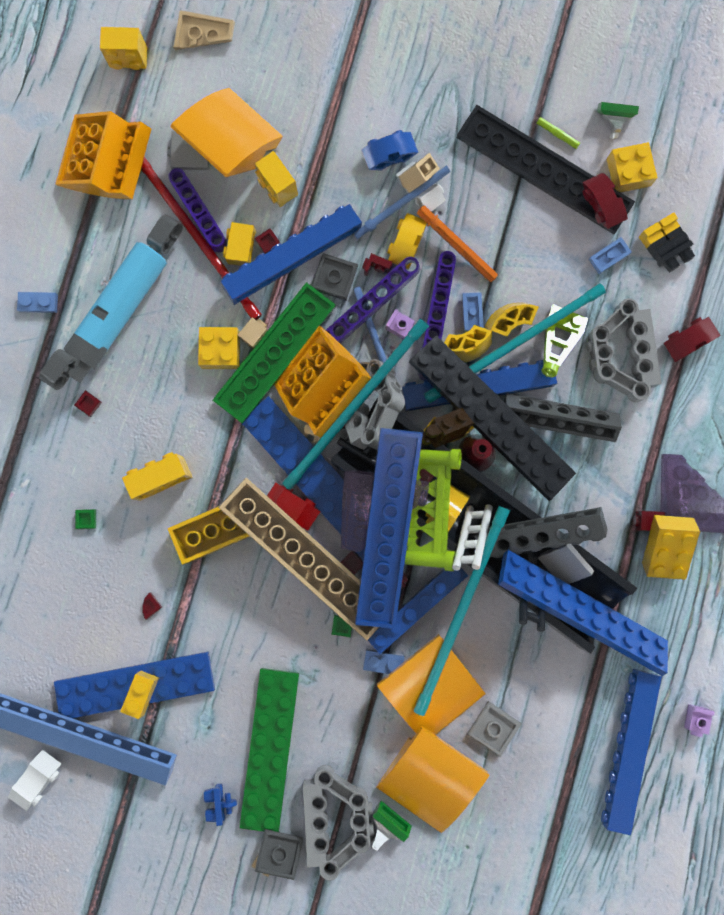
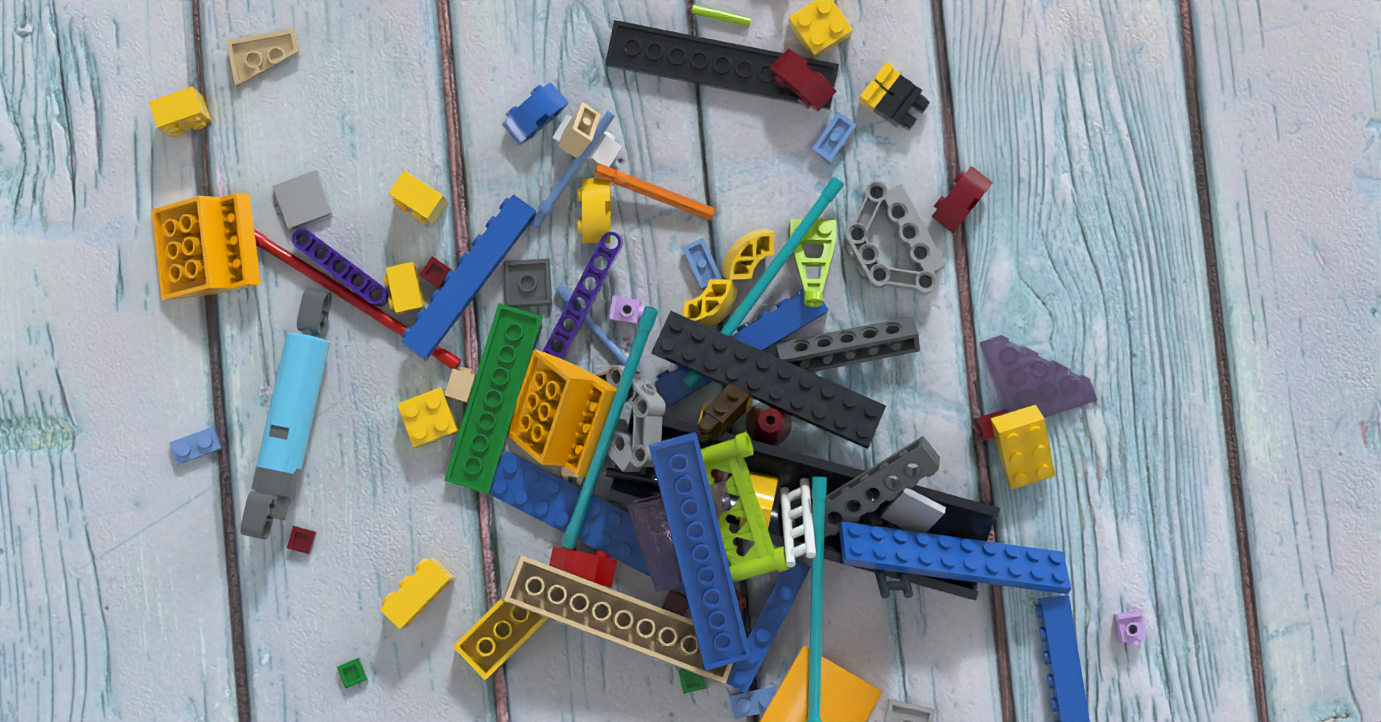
camera: 20 degrees left, 0 degrees up
(227, 132) = (340, 166): light orange slope -> none
(380, 264) = (575, 249): dark red bracket -> none
(440, 289) = (657, 273): dark purple beam -> none

